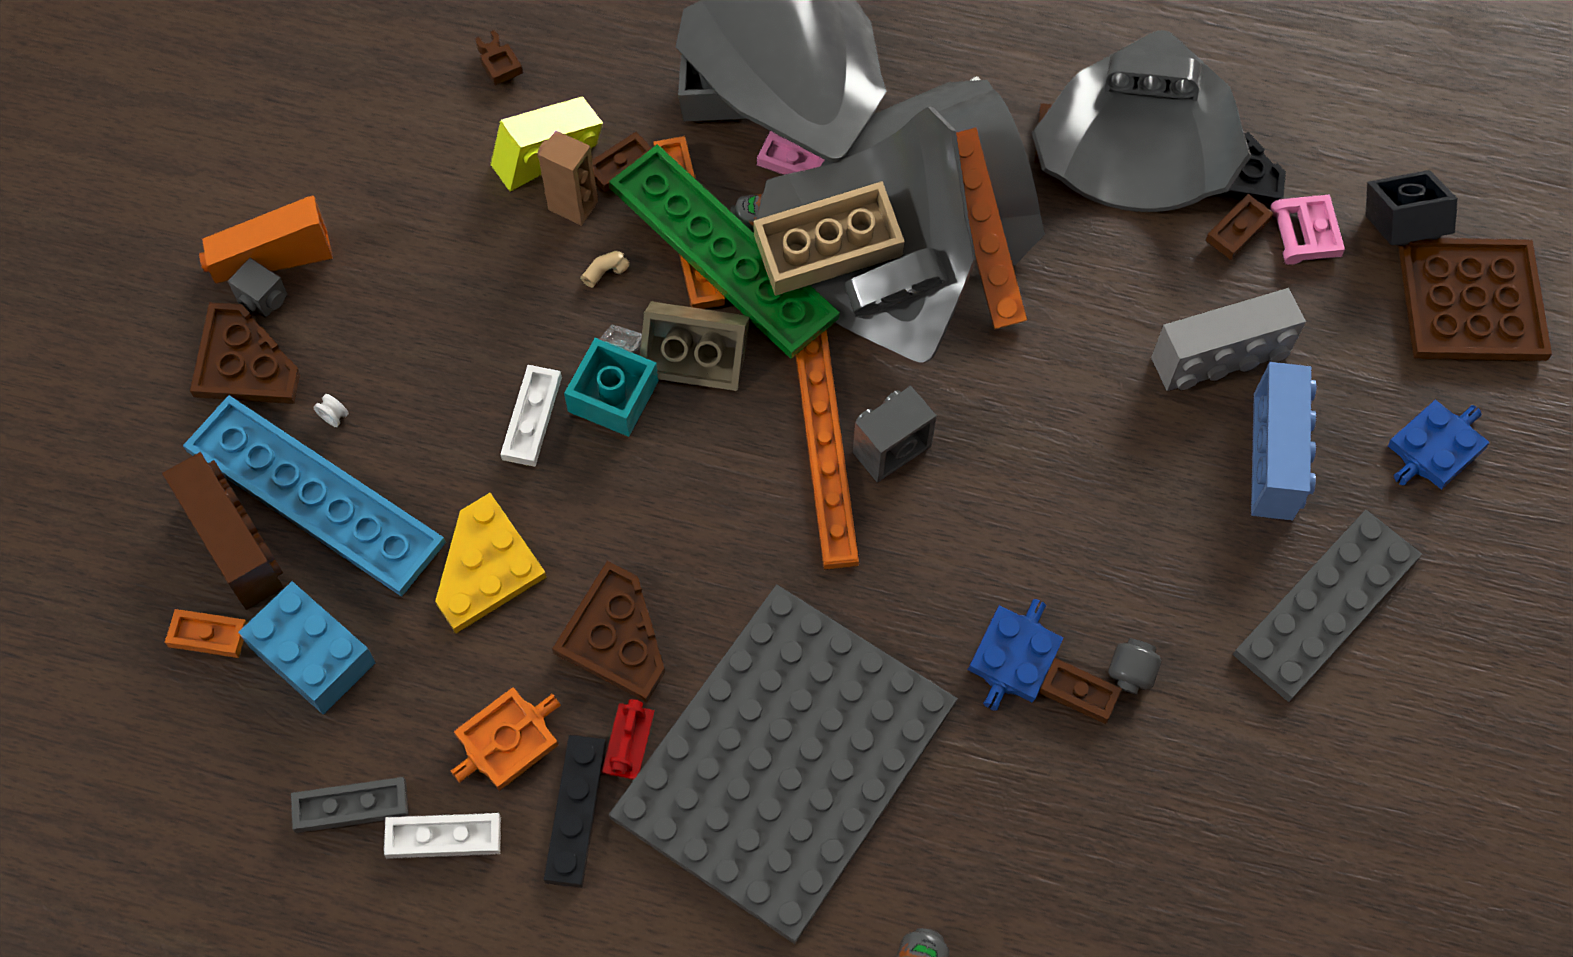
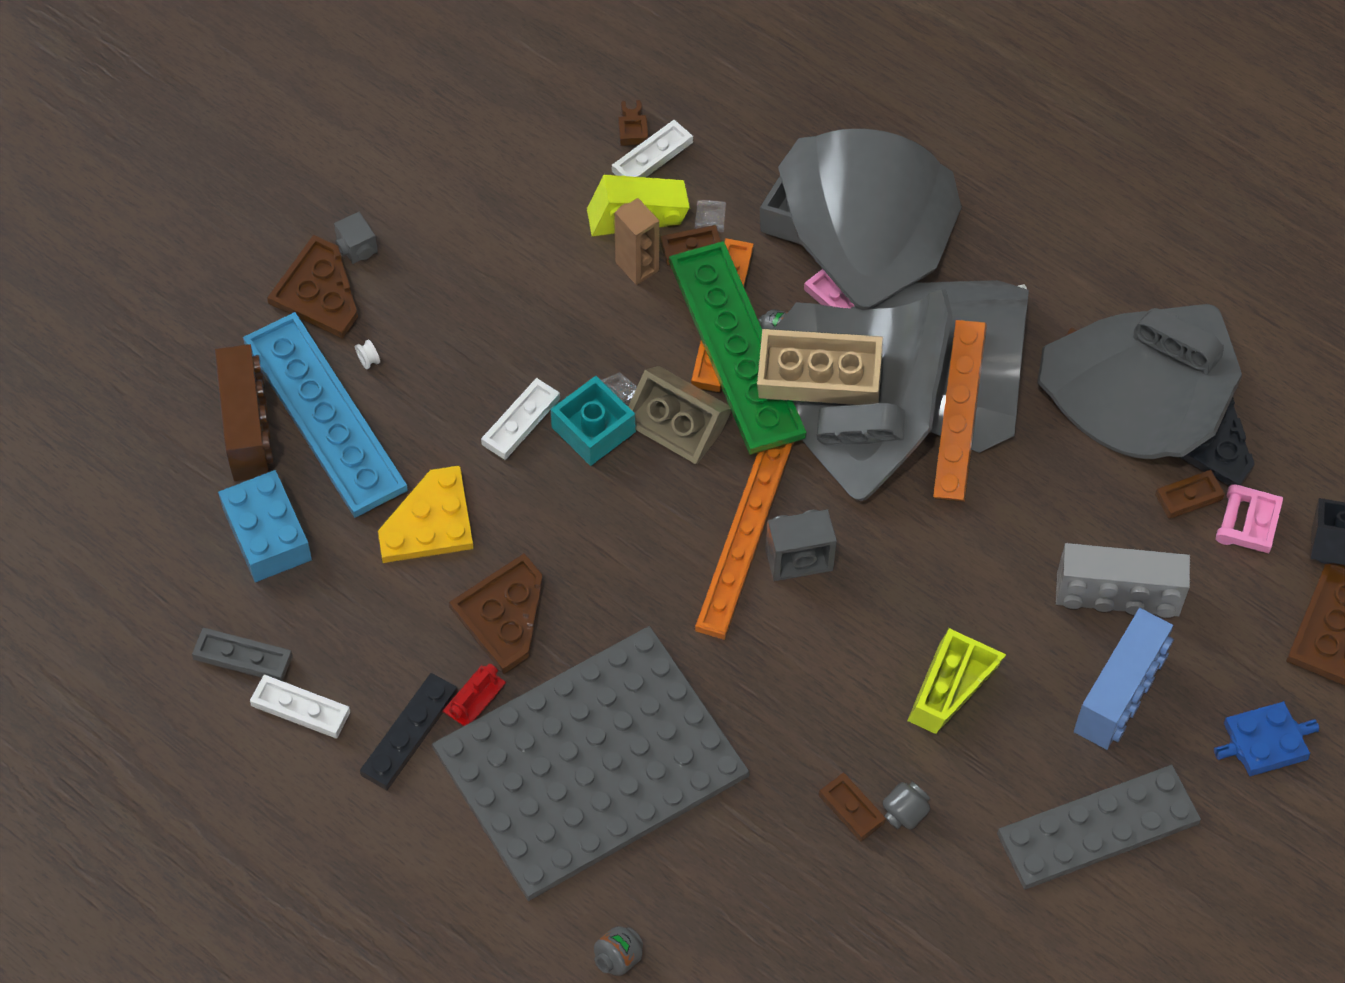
camera: 25 degrees right, 5 degrees down
(205, 633) = (194, 485): orange plate -> none
(274, 240) = (385, 205): orange slope -> none
(506, 738) = (382, 655): orange plate -> none
(533, 79) = (654, 151): none -> white plate
(602, 264) = (635, 322): tan arm -> none
(624, 122) = (710, 214): none -> clear plate
(1015, 654) = (814, 757): blue plate -> none
(1113, 513) = (952, 679): none -> neon yellow wedge

